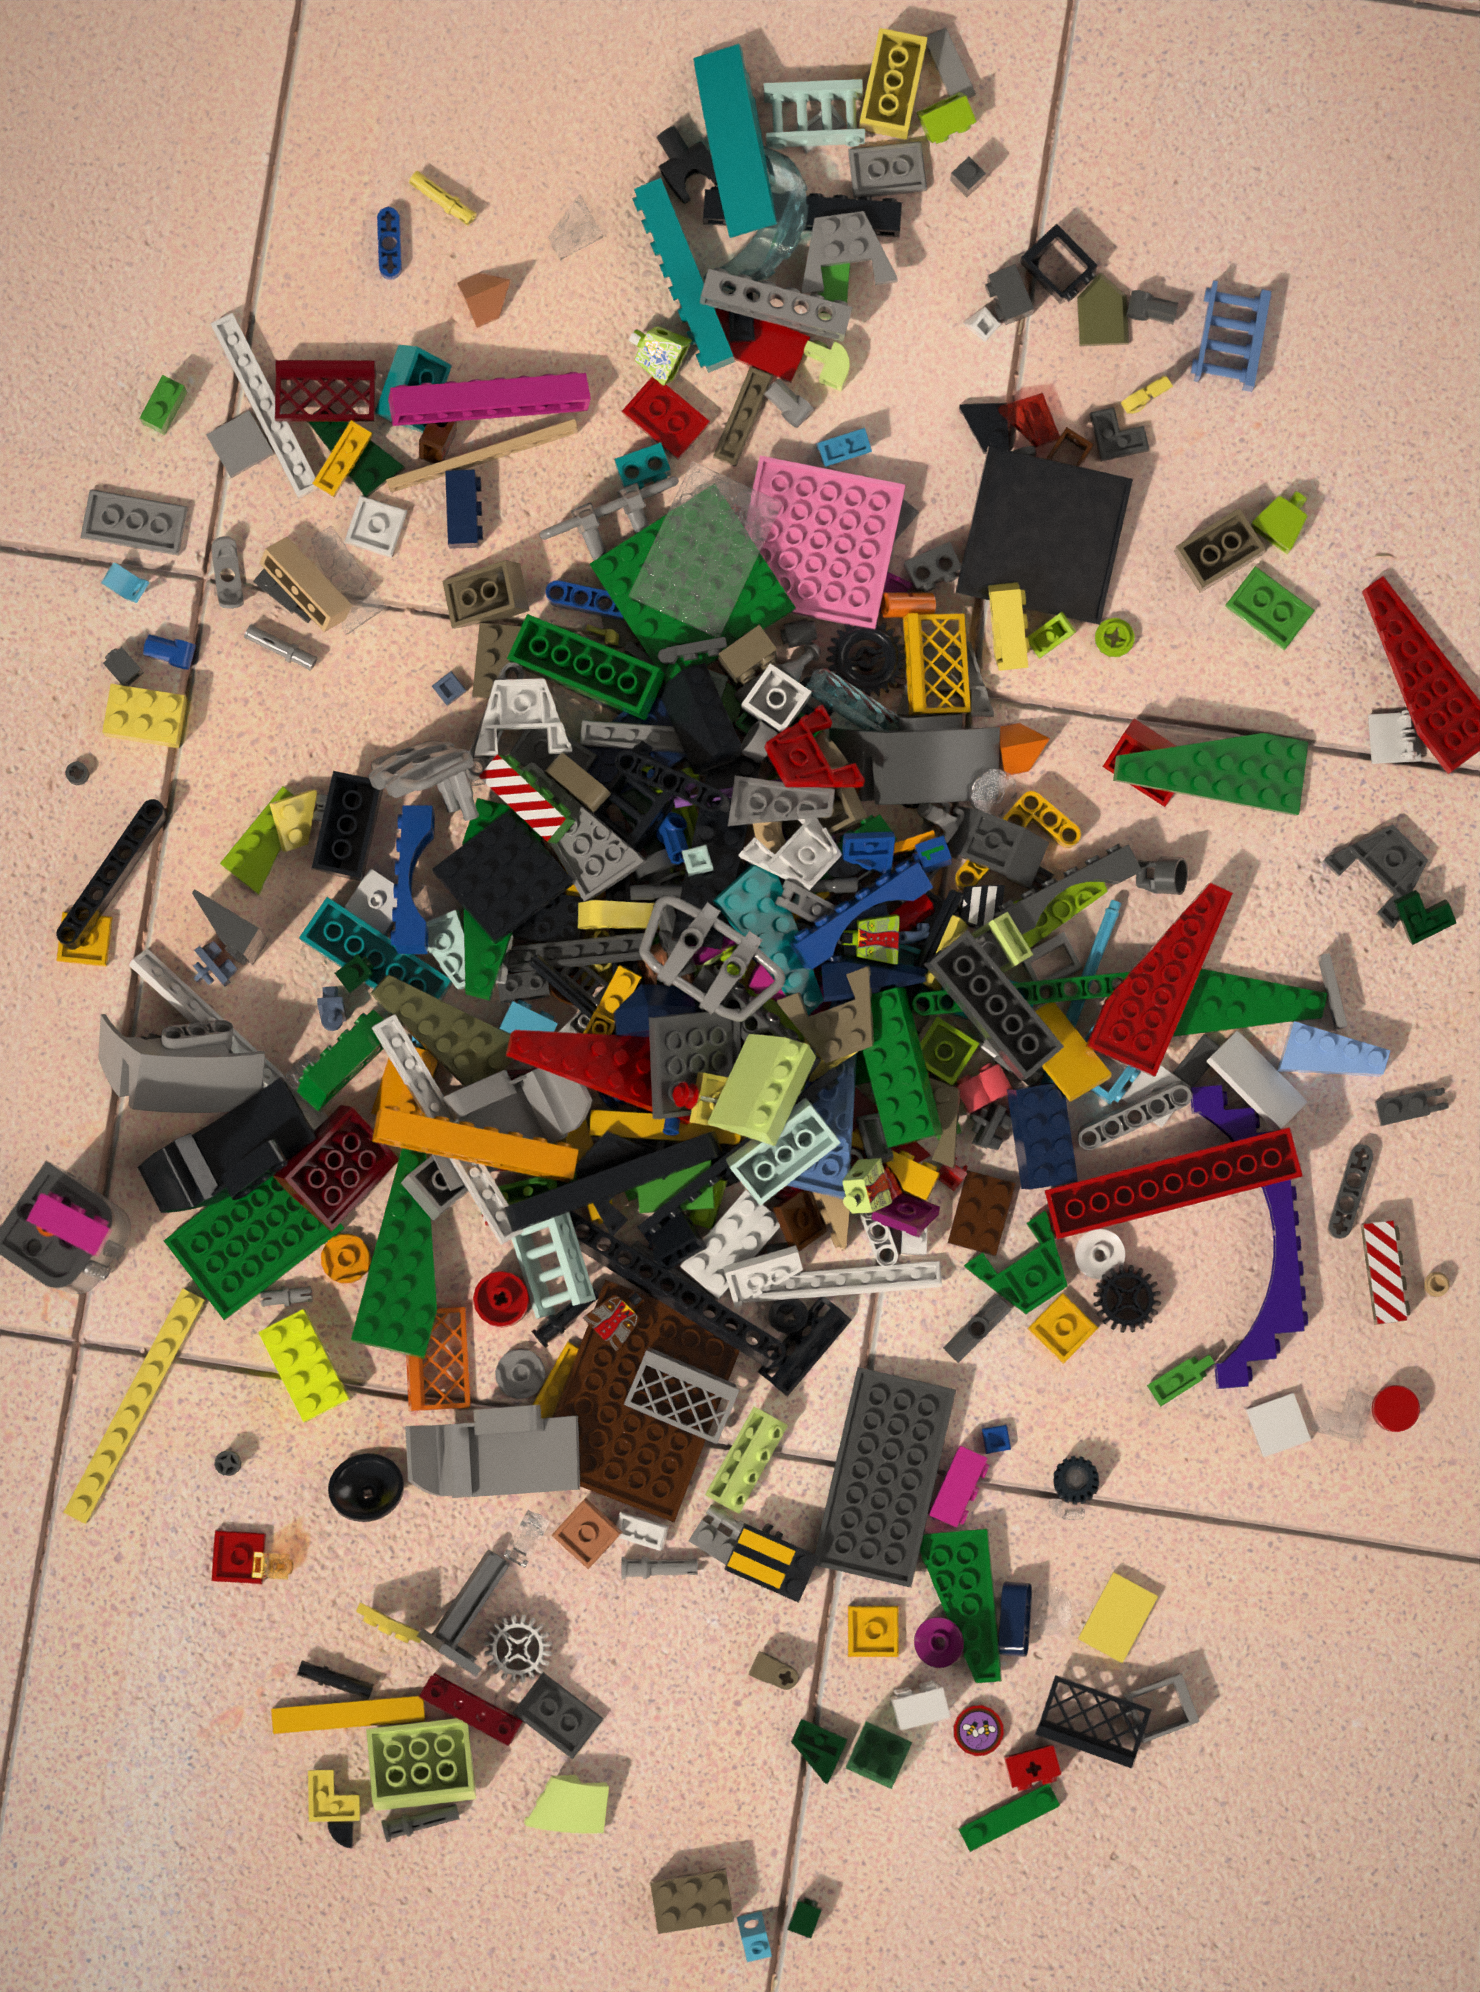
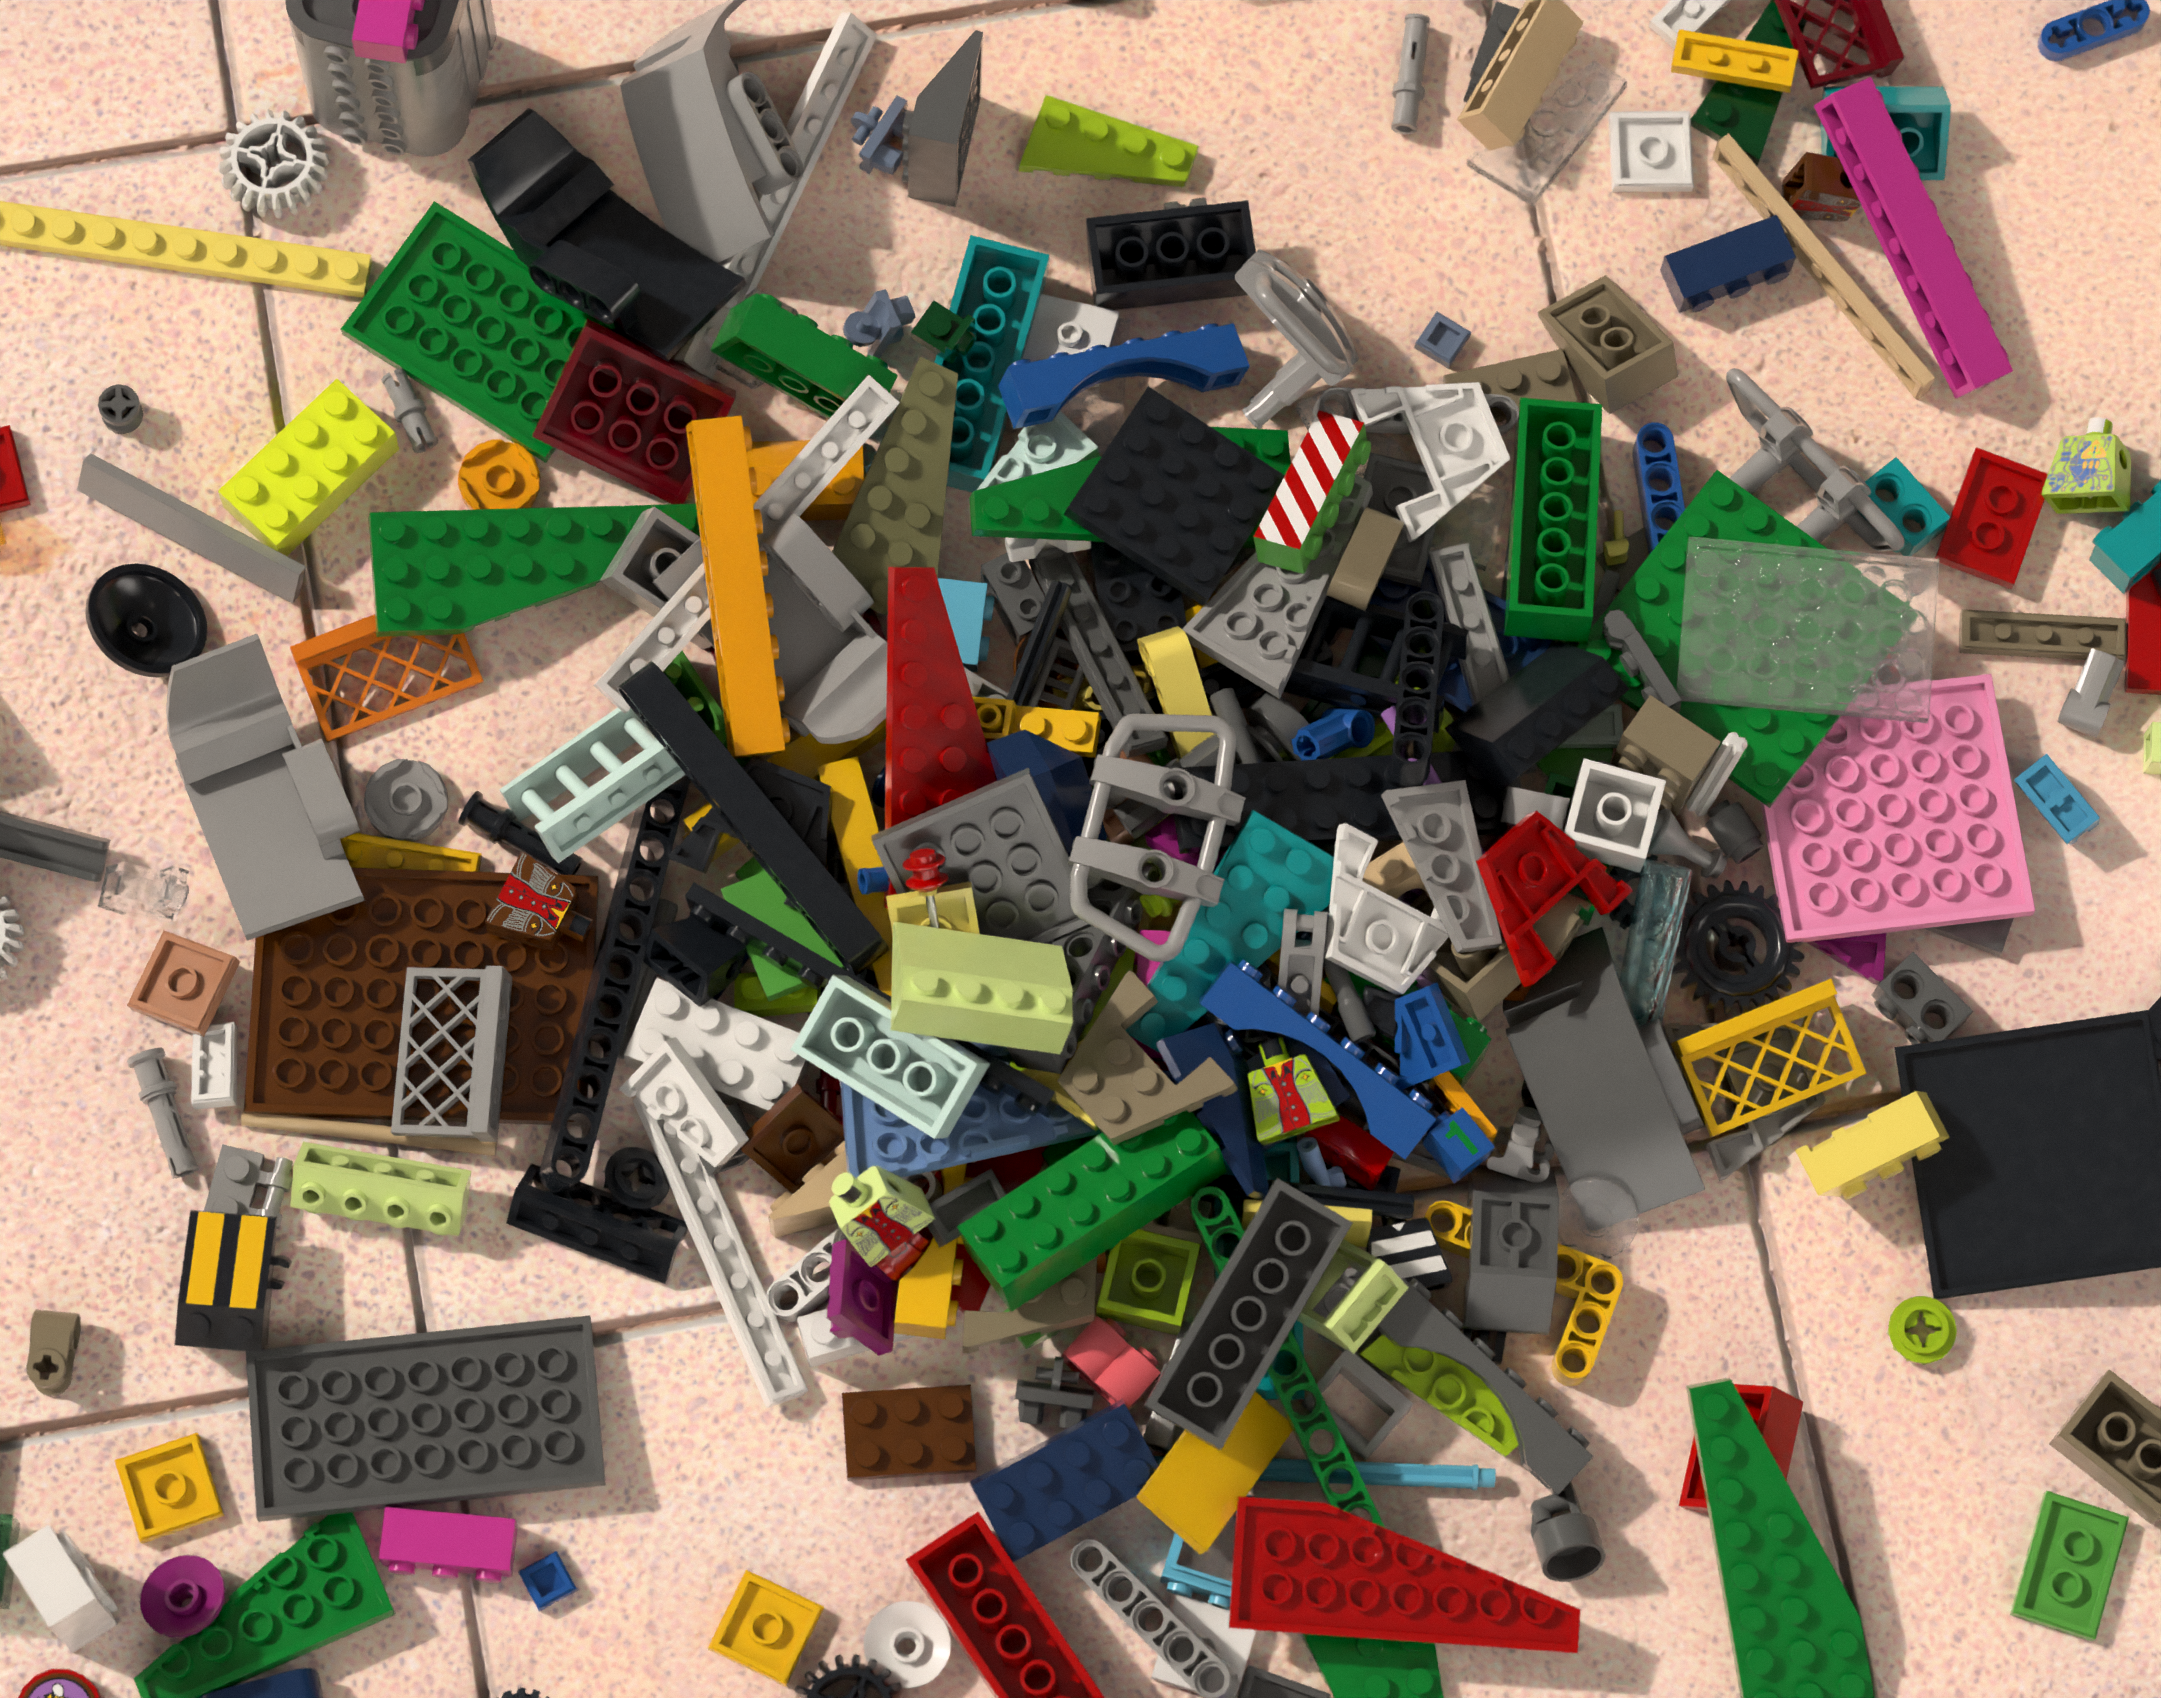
camera: 65 degrees right, 10 degrees down
(100, 1336) = (244, 153): none -> white gear
(294, 819) = (1153, 176): light yellow wing -> none
(315, 1444) = (191, 528): none -> light grey tile
(484, 297) = (2066, 188): nougat slope -> none
(490, 1289) = (504, 704): red wheel -> none
(697, 860) = (1308, 770): light aqua tile -> none
(704, 1464) = (364, 1131): none -> tan piece
(765, 622) = (1717, 774): none -> white axle
(903, 603) = (1839, 961): orange pin -> none
(952, 1176) = (952, 1364): red tile -> none
(989, 1316) = (691, 1473): dark grey piece -> none
(1020, 747) = (1684, 1236): orange slope -> none
(1031, 1278) = (831, 1548): green wing -> none
(1051, 635) = (1885, 1223): lime slope -> none

